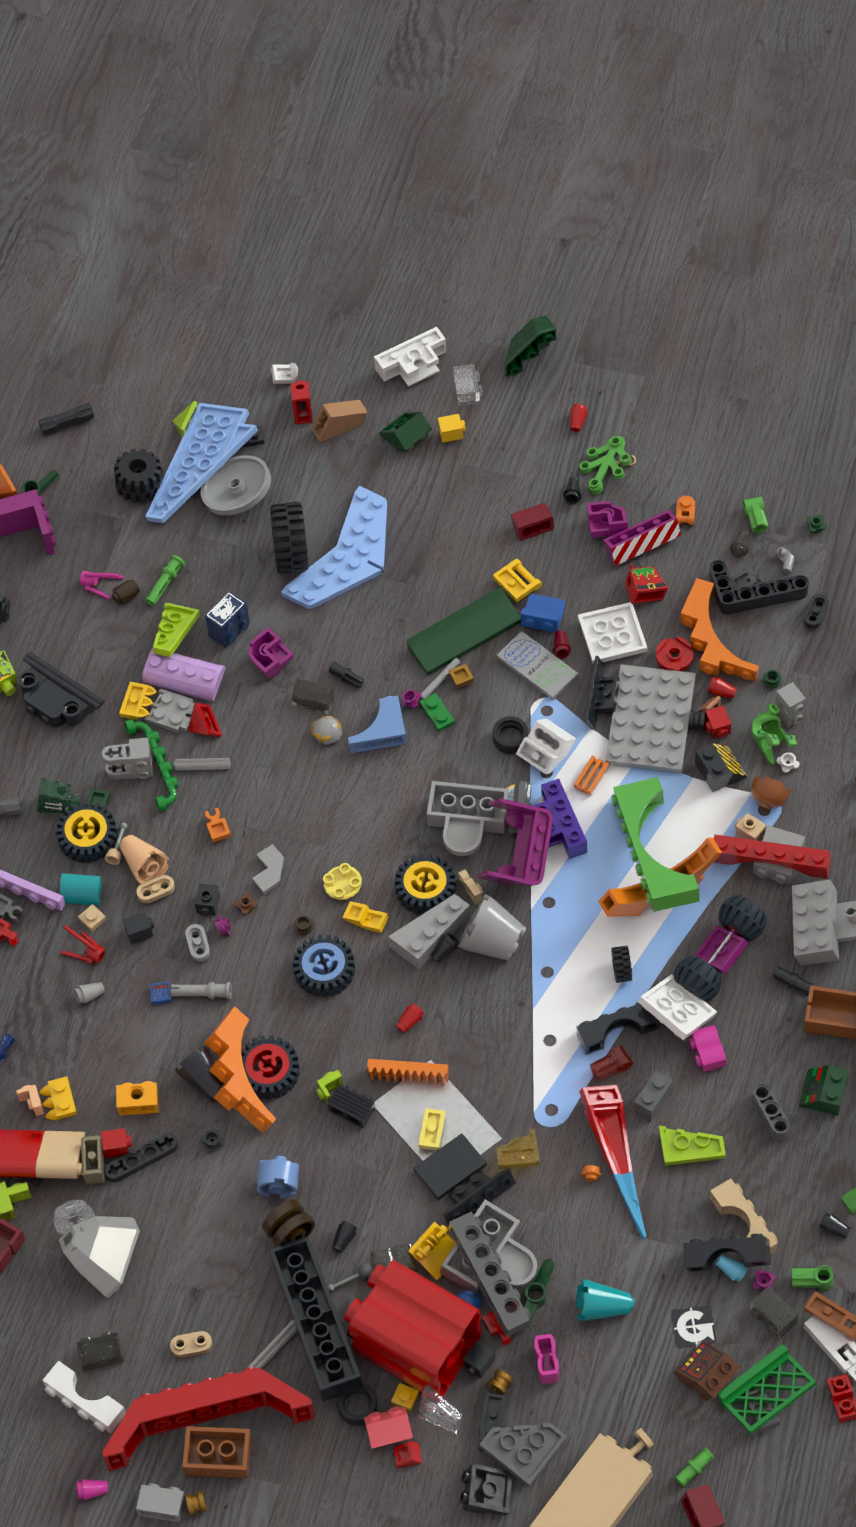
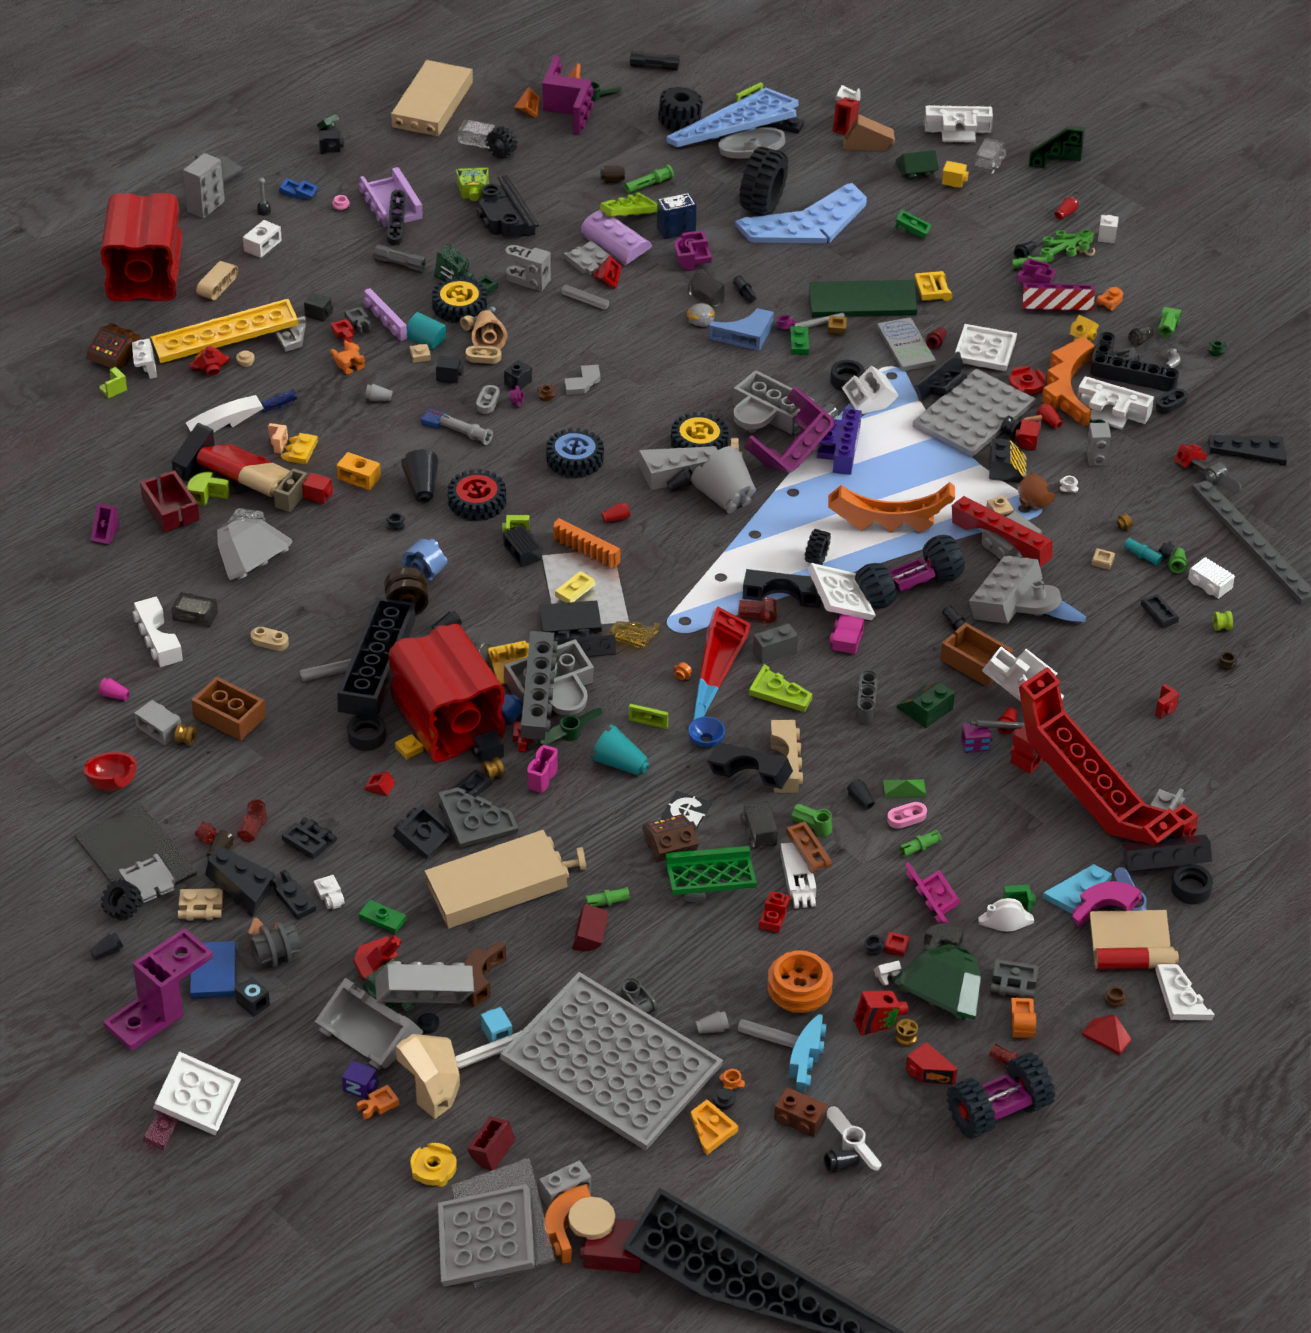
camera: 25 degrees right, 15 degrees down
(30, 963) = (348, 357): none -> orange animal
(90, 579) = (591, 156): dark pink plant -> none
(94, 951) = (403, 370): red plant -> none
(135, 701) = (568, 237): yellow plate -> none
(139, 1154) = (304, 507): black beam -> none
(158, 754) = (554, 284): green bar -> none
(202, 1403) = (251, 670): red slope -> none
(217, 827) = (563, 338): orange plate -> none
(229, 1069) = (436, 487): orange arch -> none
(303, 925) = (581, 421): dark brown plate -> none
(342, 882) = (634, 409): light yellow dish -> none
(364, 917) = (633, 438): yellow slope -> none
(388, 1427) = (376, 754): coral brick -> none
(439, 1411) = (426, 762): clear wing -> none
(451, 512) = (913, 224): none -> green plate
(532, 521) = (975, 256): dark red brick -> none
(543, 613) = (936, 312): blue bracket -> none
(581, 507) = (1018, 263): none -> bright green pin
(592, 760) = (893, 427): orange tile -> none
(595, 1239) = (648, 716): none -> lime slope
(633, 426) = (1108, 229): none -> white brick
(644, 584) = (1036, 326): red torso -> none
(659, 1224) = (706, 727): none -> blue piece
(663, 886) = (887, 500): bright green arch -> none
(690, 561) = (1083, 328): none -> yellow brick
(732, 1268) = (749, 782): medium azure cone -> none
(763, 1275) = (773, 802): magenta plate -> none
(768, 733) = (1066, 454): bright green piece -> none
(771, 646) = (1114, 402): none -> white piece

